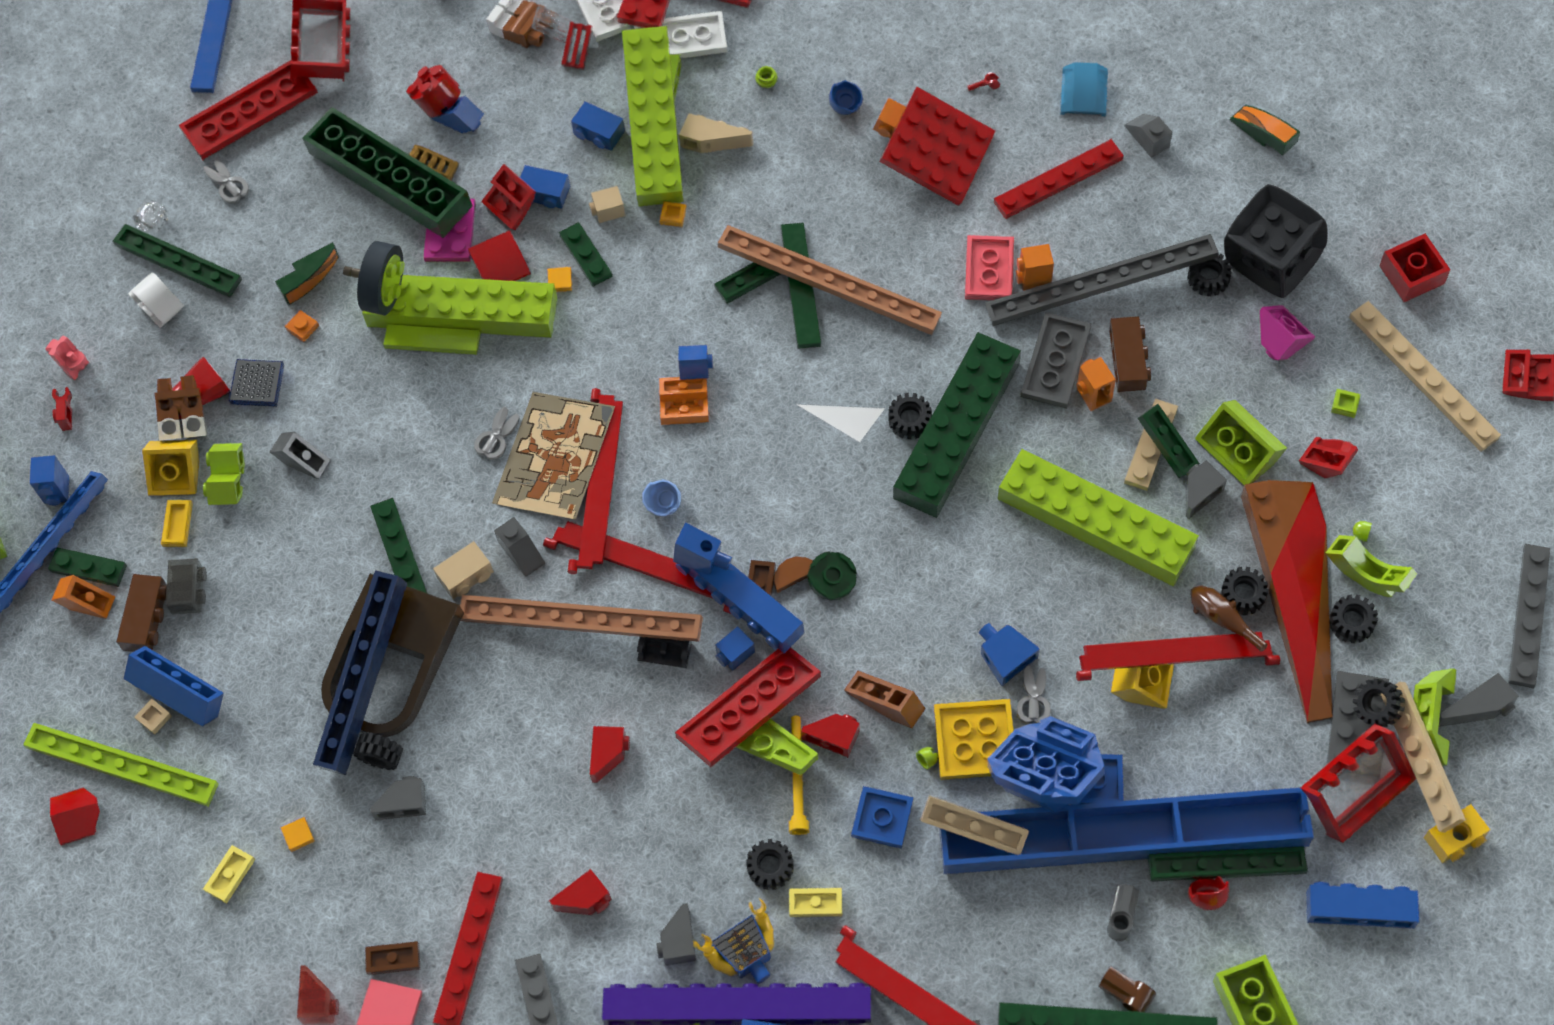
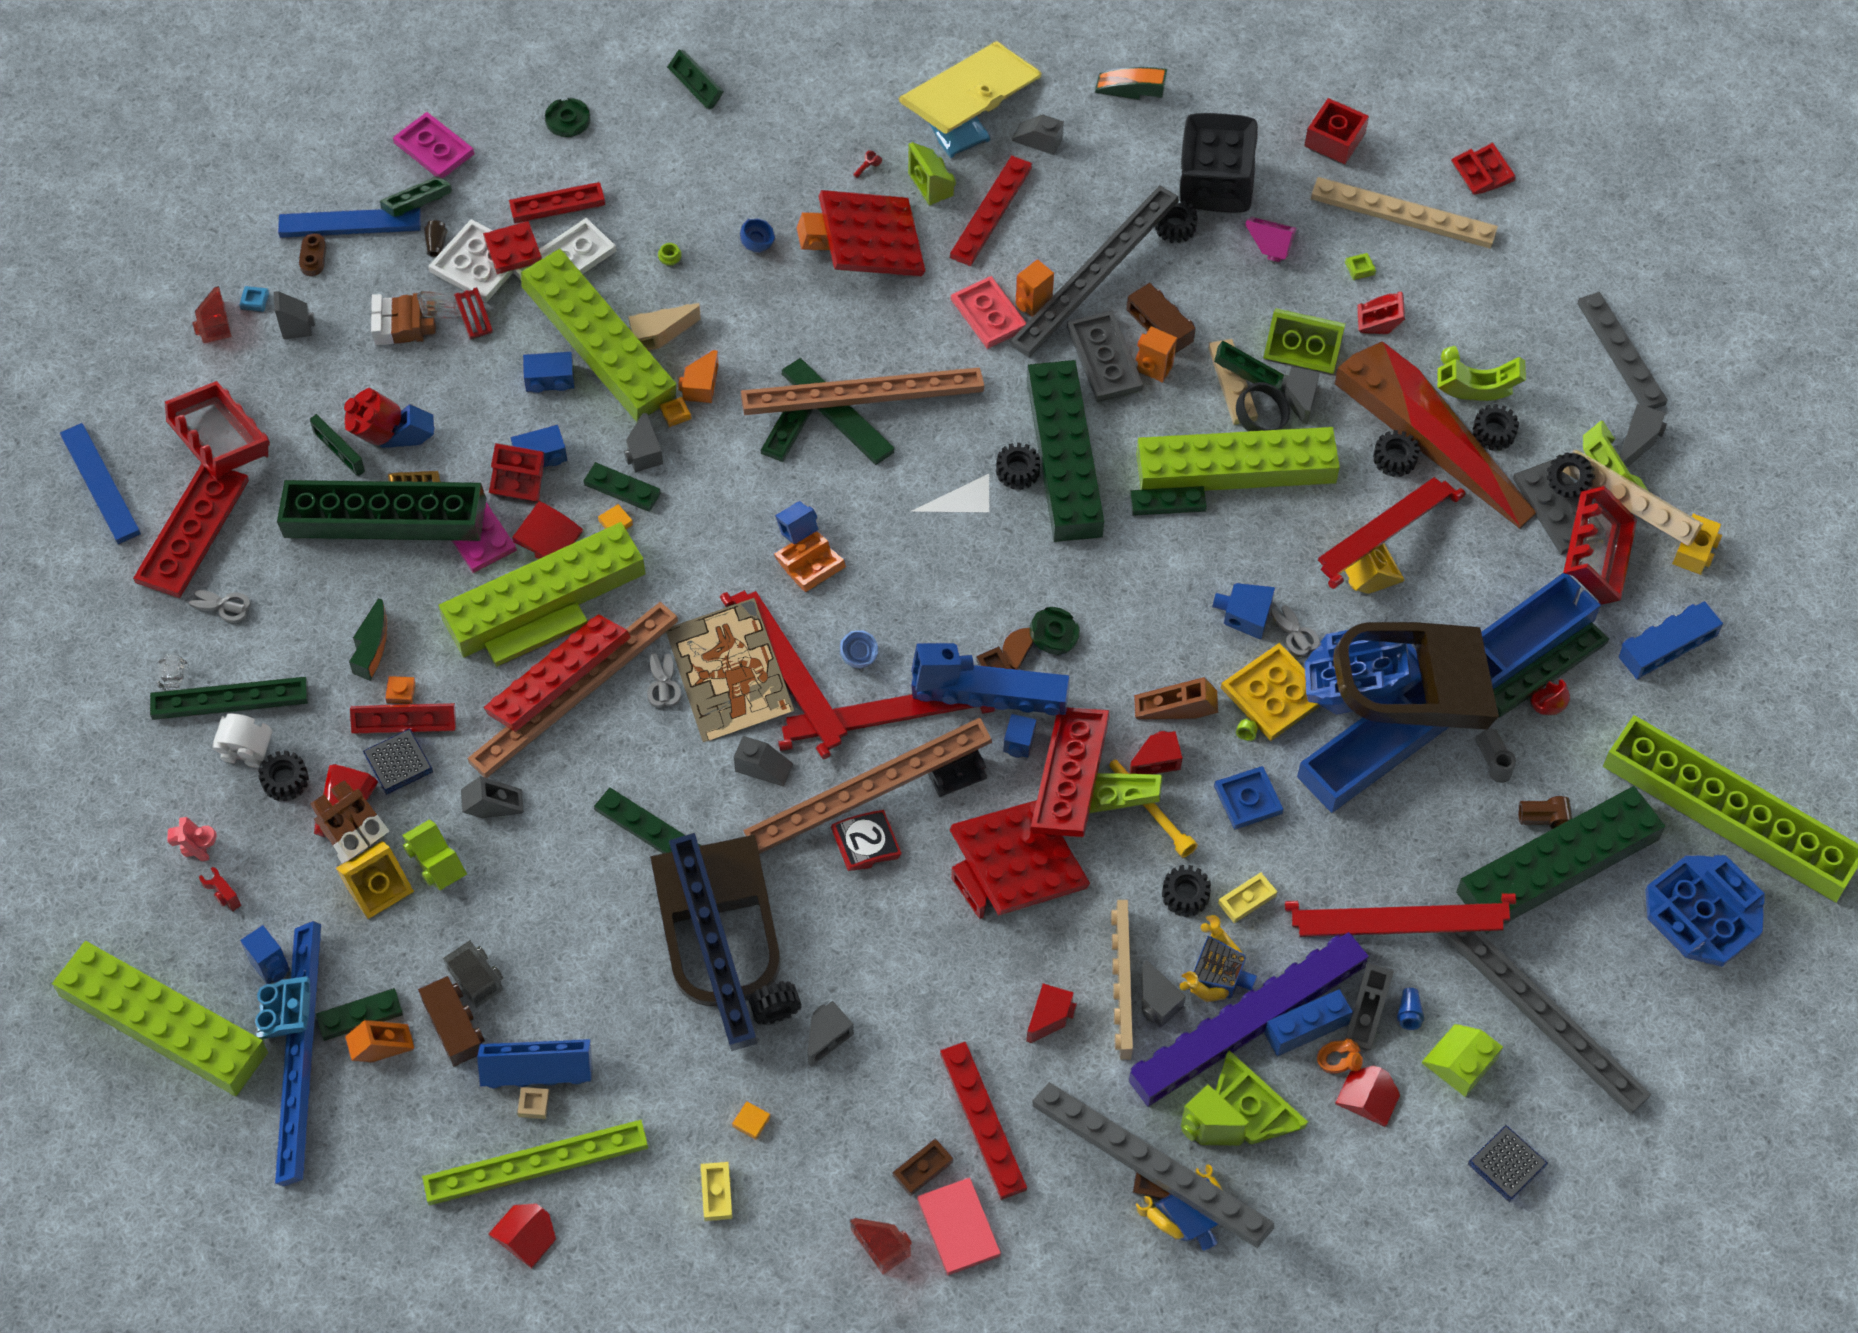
camera: 40 degrees left, 5 degrees down
(32, 528) = (283, 1007): none -> dark azure slope
(168, 333) = (287, 788): none -> black tyre
(176, 523) = (417, 926): yellow tile -> none
(285, 350) = (403, 717): none -> red plate
(379, 277) = (466, 594): black wheel -> none
(397, 99) = (337, 445): none -> dark green tile
(420, 380) = (556, 672): none -> red plate
(425, 401) = (509, 743): none -> nougat plate
(463, 570) = (727, 809): tan brick -> none
(551, 661) = (865, 840): none -> slope
(607, 204) = (611, 433): tan brick -> none
(624, 228) = (642, 446): none -> dark grey slope
(645, 757) = (1013, 863): none -> red plate
(655, 914) = (1122, 989): none -> tan plate
(711, 196) = (700, 379): none -> orange slope
(974, 825) = (1336, 752): tan plate -> none
(1014, 518) = (1168, 500): none -> dark green plate
(1028, 119) = (929, 174): none -> lime slope
(1116, 60) = (970, 87): none -> light yellow door
(1122, 819) = (1451, 672): none -> dark brown window
(1176, 477) = (1275, 394): none -> black tyre
(1224, 613) = (1395, 478): reddish brown piece -> none

